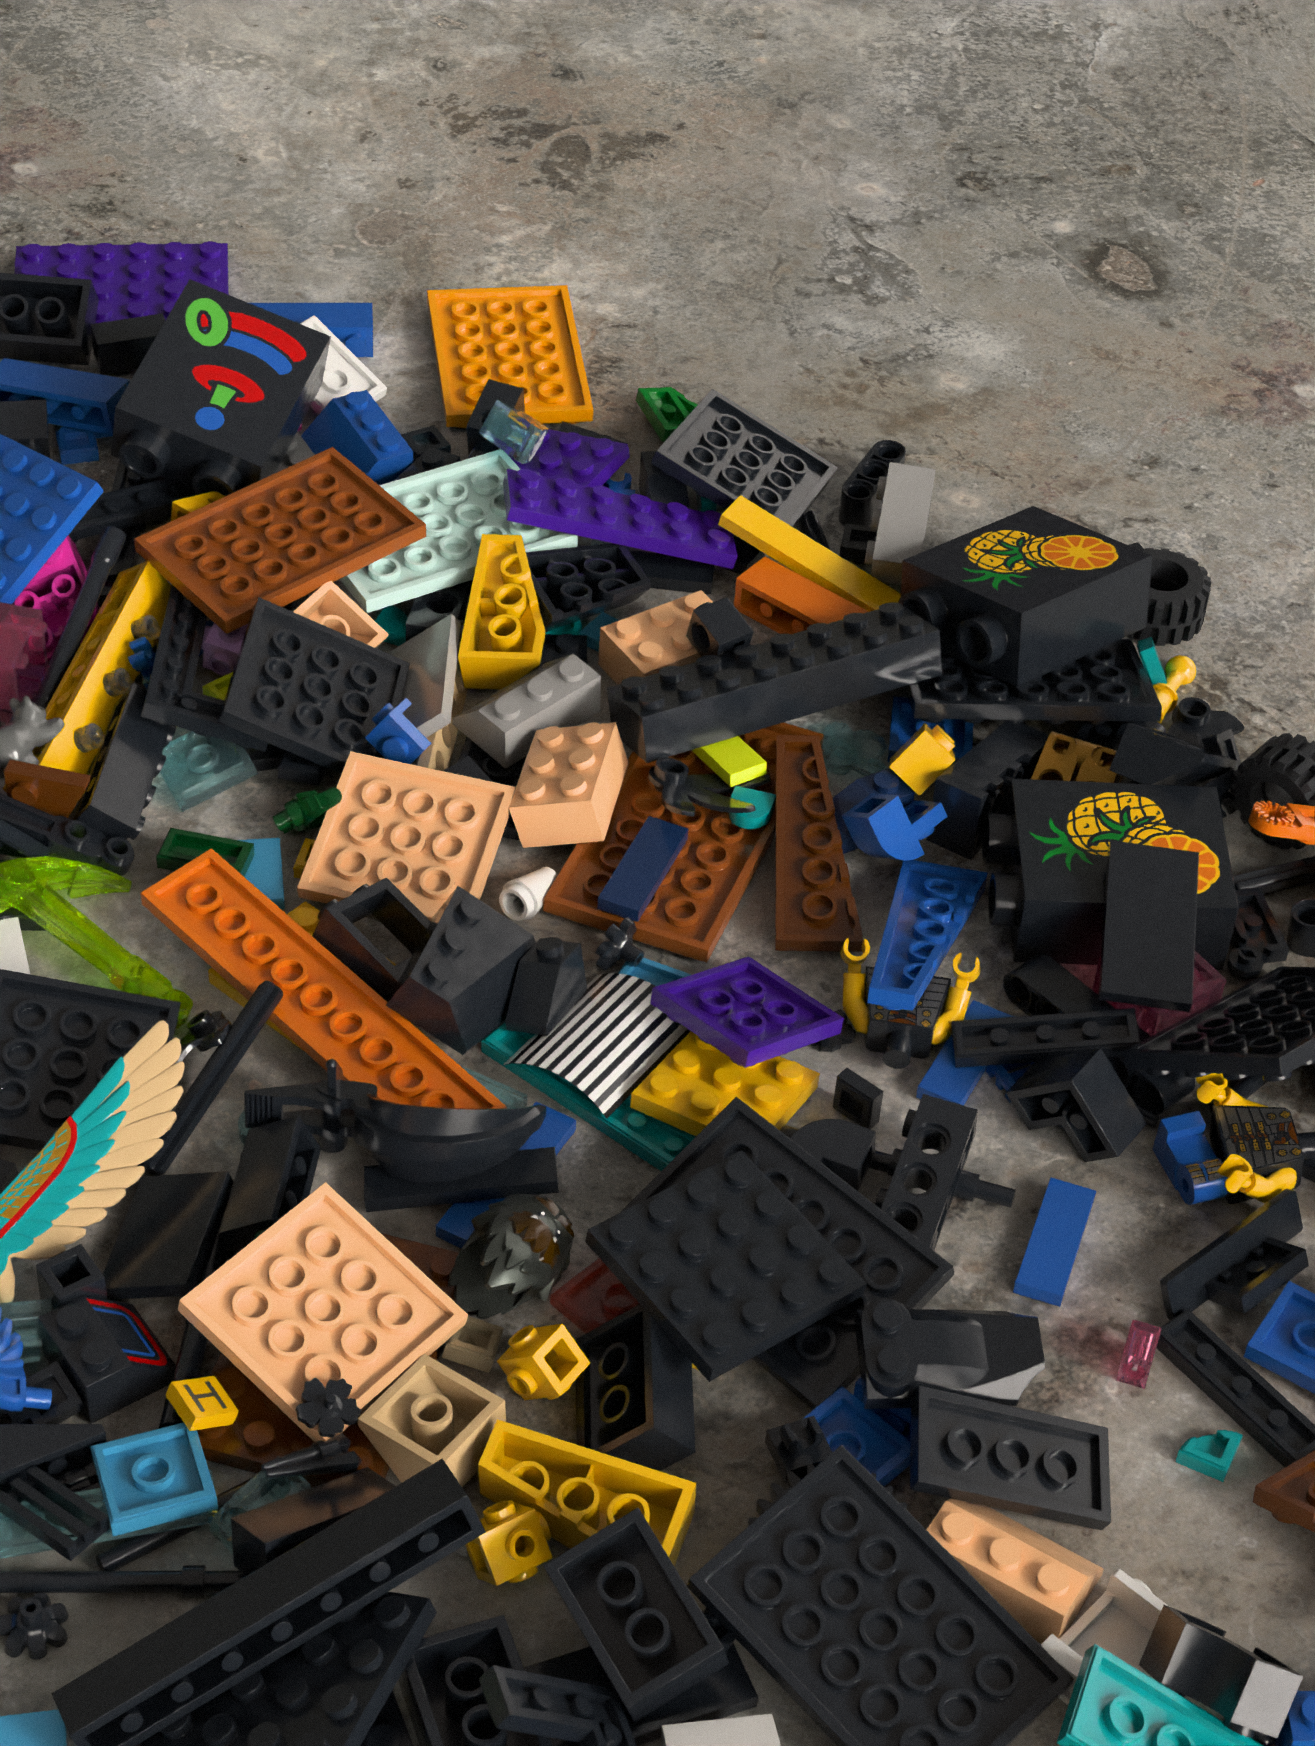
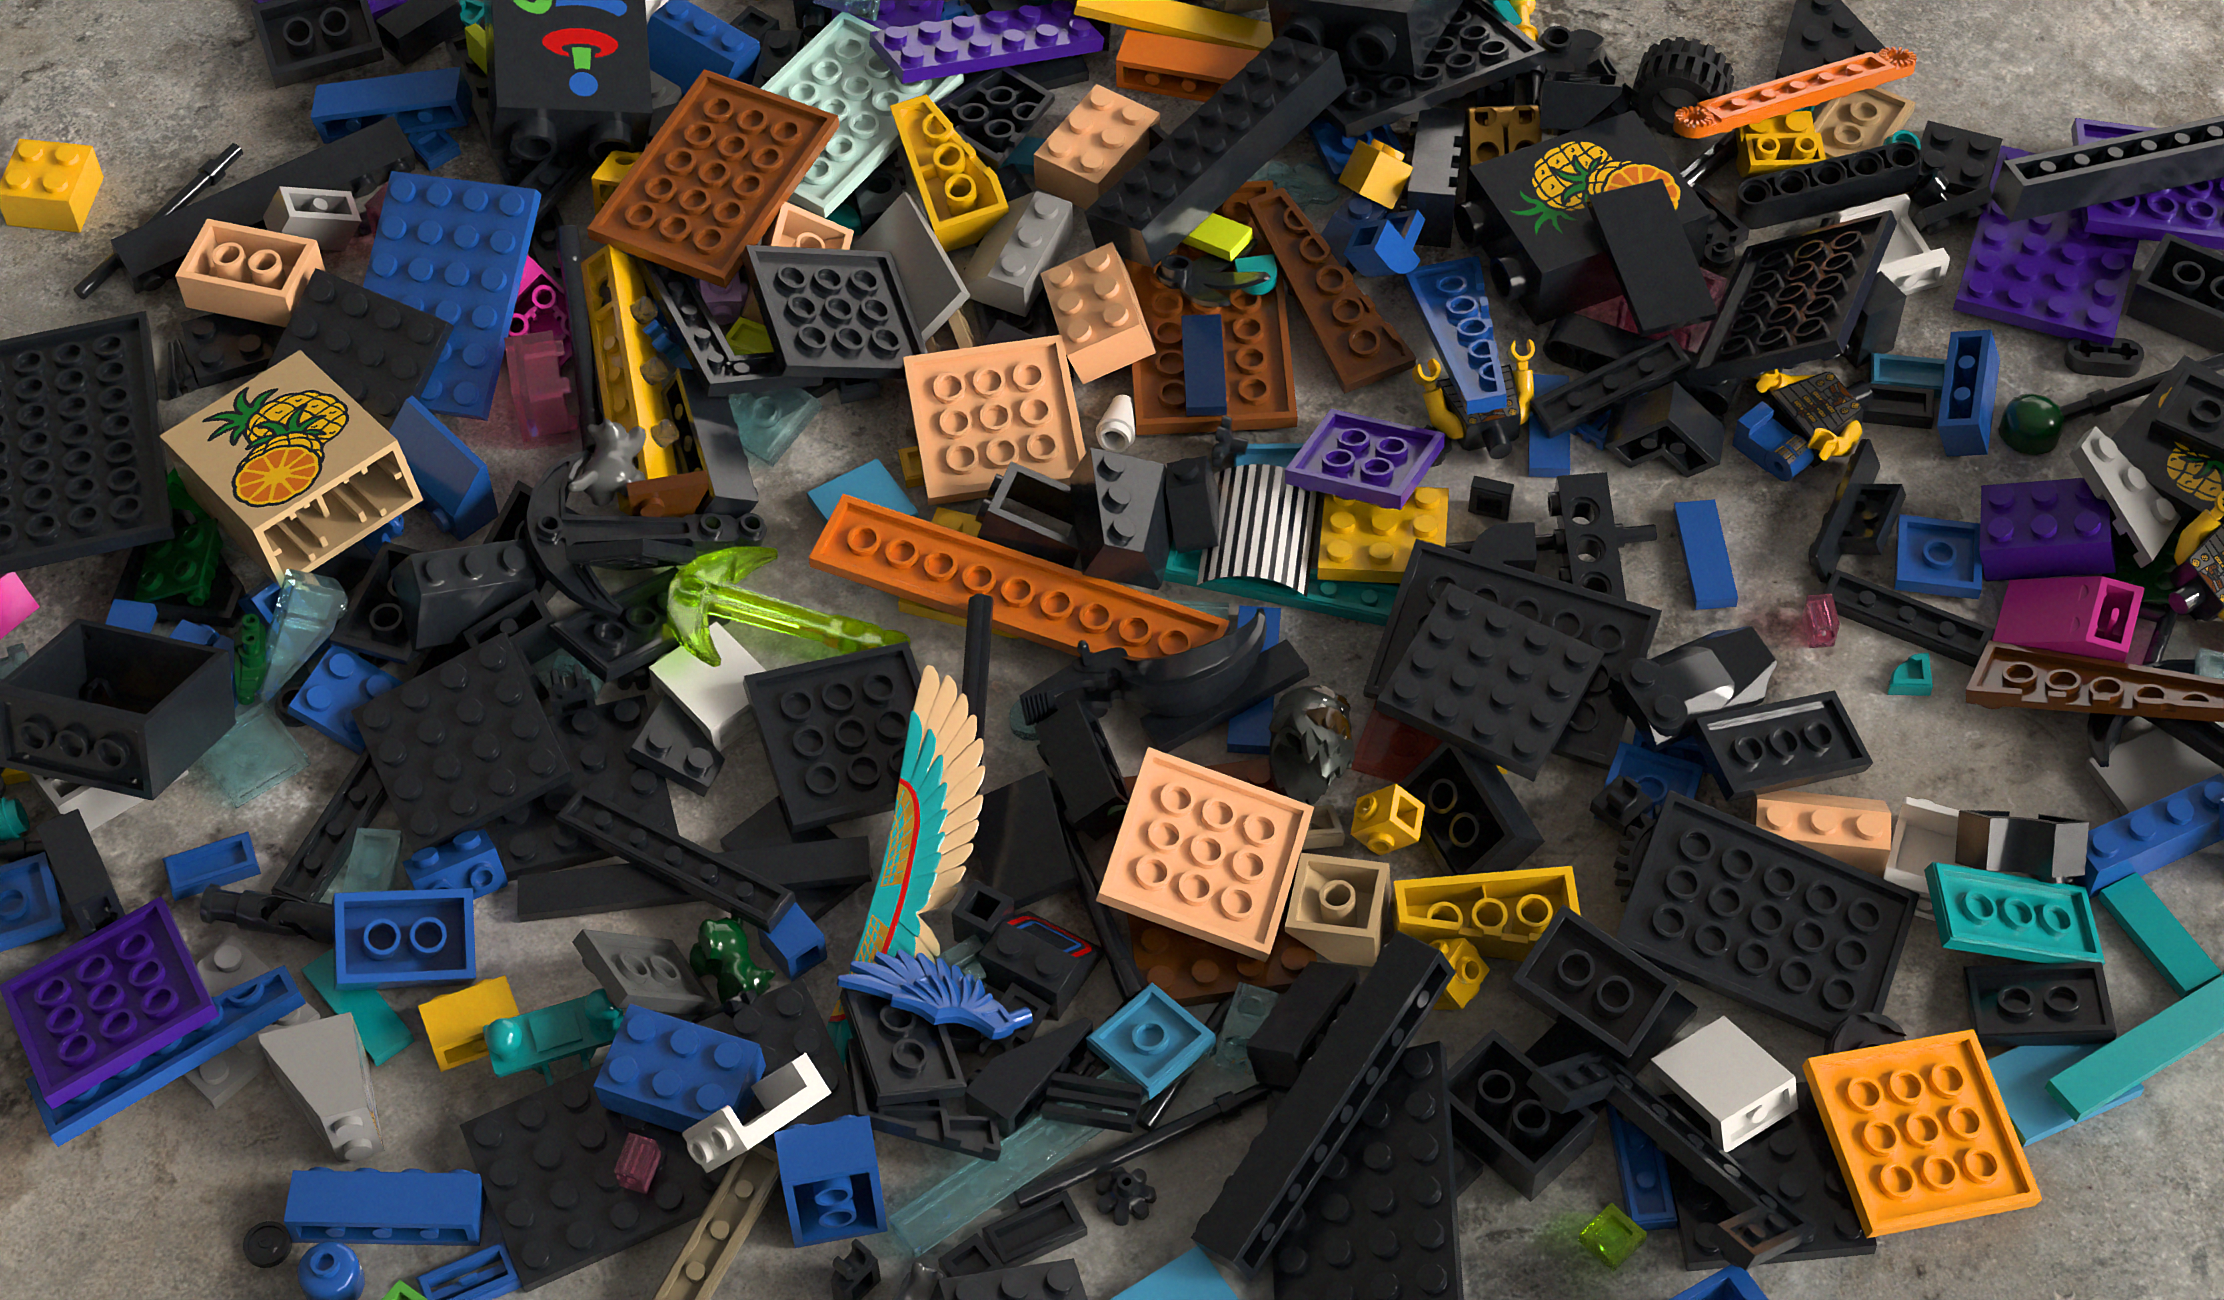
camera: 20 degrees left, 10 degrees up
(184, 846) = (817, 500): dark green tile -> none
(202, 1403) = (1152, 966): yellow tile -> none
(204, 1032) = (942, 655): black plate -> none
(306, 810) = (892, 423): dark green helmet -> none
(315, 1459) = (1269, 972): black piece -> none
(327, 1406) = (1257, 928): black plant -> none
(396, 736) = (929, 326): blue bracket -> none
(718, 628) = (1145, 121): black brick -> none

